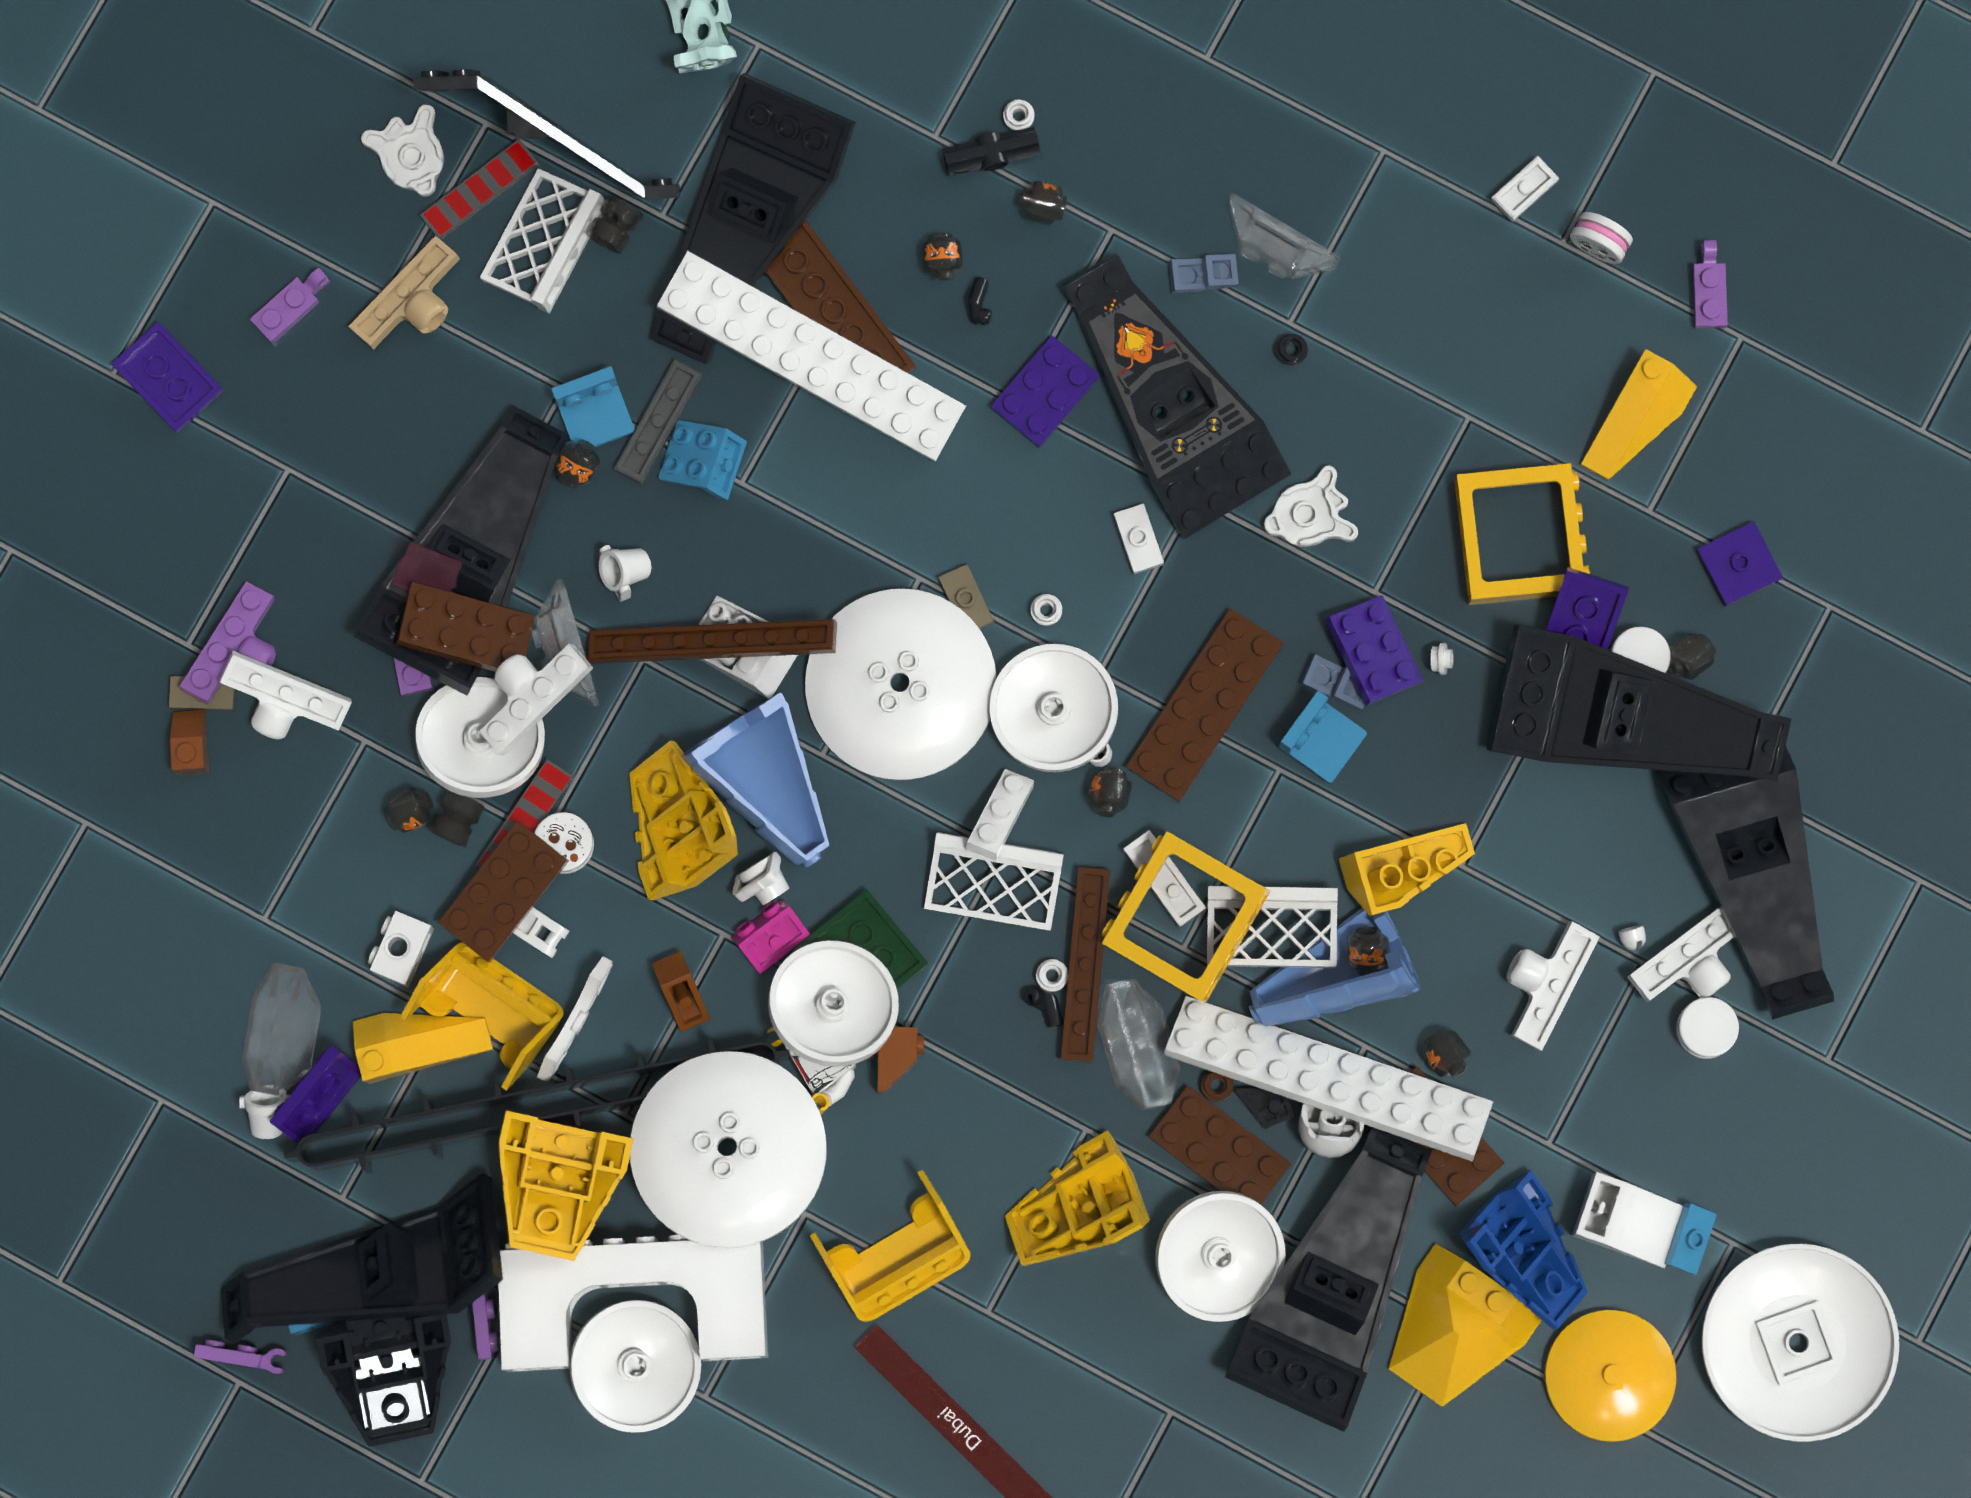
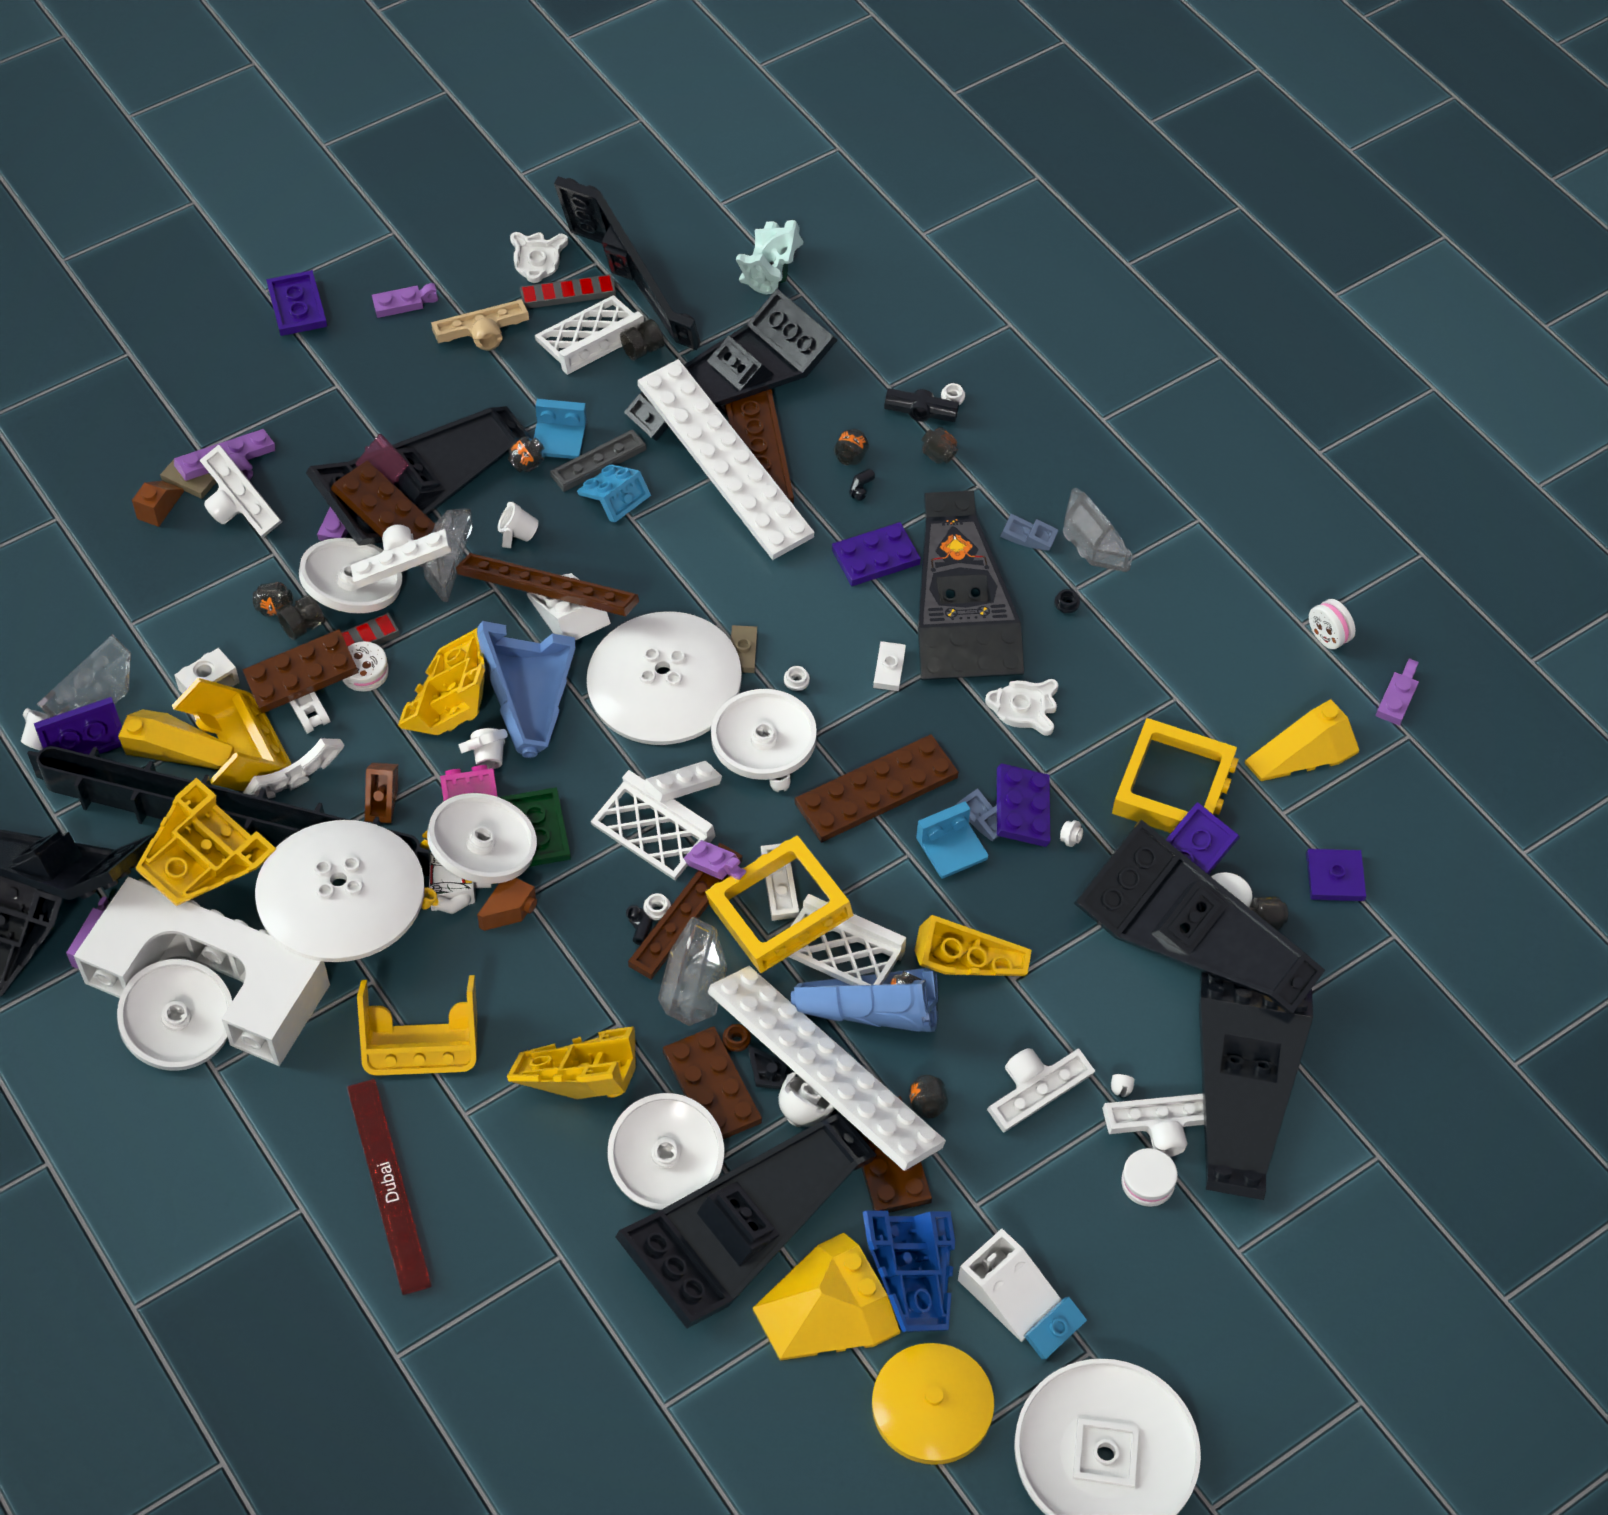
camera: 25 degrees right, 25 degrees down
(1089, 898) = (714, 861): none -> medium lavender plate
(1109, 792) = (772, 806): clear smoke head -> none
(1525, 189) = (1290, 578): white plate -> none

